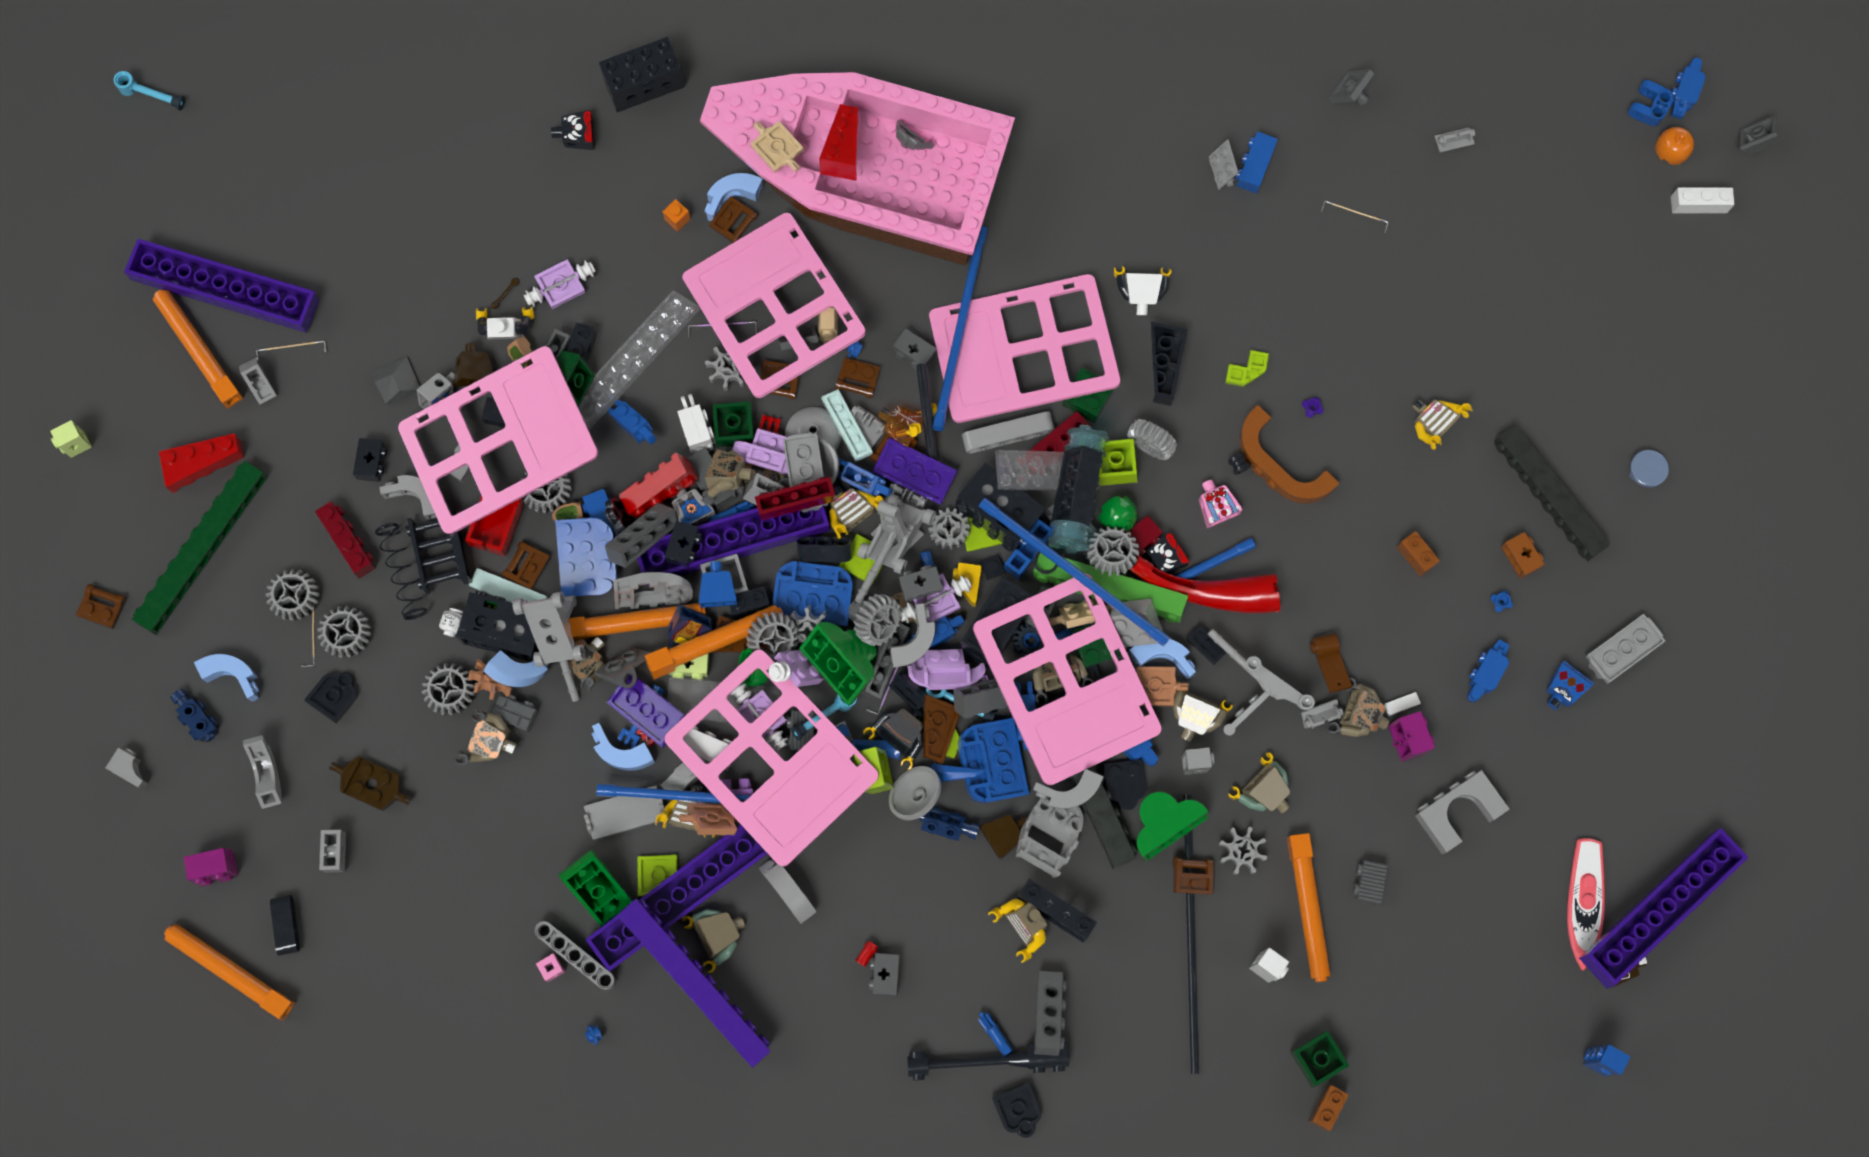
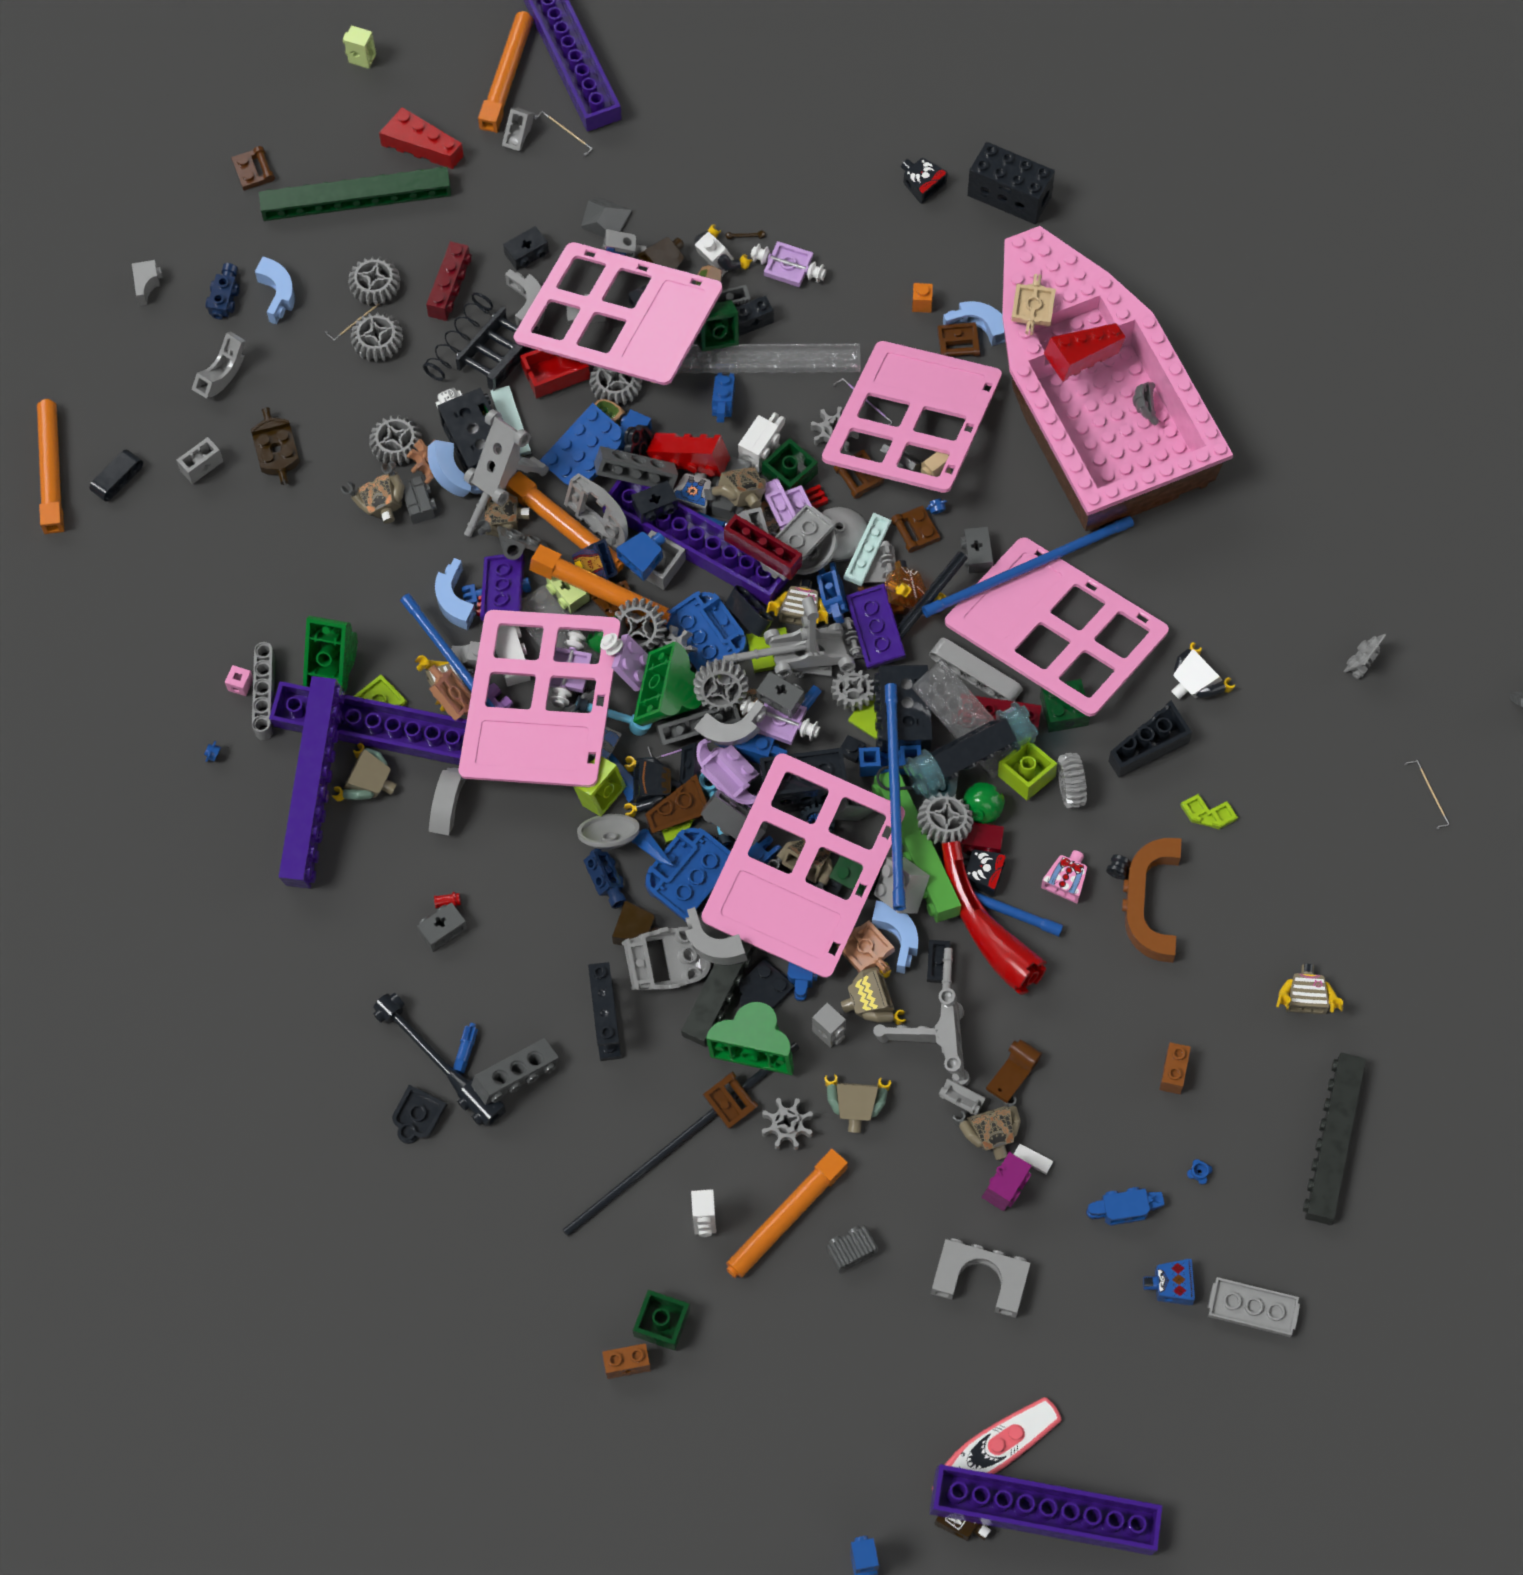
camera: 55 degrees right, 10 degrees down
(210, 867) = (117, 389): magenta brick -> none
(333, 695) = (321, 369): black plate -> none
(531, 568) = (542, 422): reddish brown plate -> none
(621, 815) = (402, 636): light grey brick -> none
(750, 603) = (656, 591): black brick -> none
(972, 573) = (828, 737): yellow slope -> none
(1026, 922) = (575, 1001): torso -> none
(1076, 614) = (864, 834): tan plate -> none
(1256, 162) = (1395, 679): blue brick -> none
(1317, 407) = (1224, 882): dark purple plate -> none
(1523, 564) = (1256, 1144): dark orange brick -> none
(1648, 468) = (1437, 1204): sand blue tile -> none

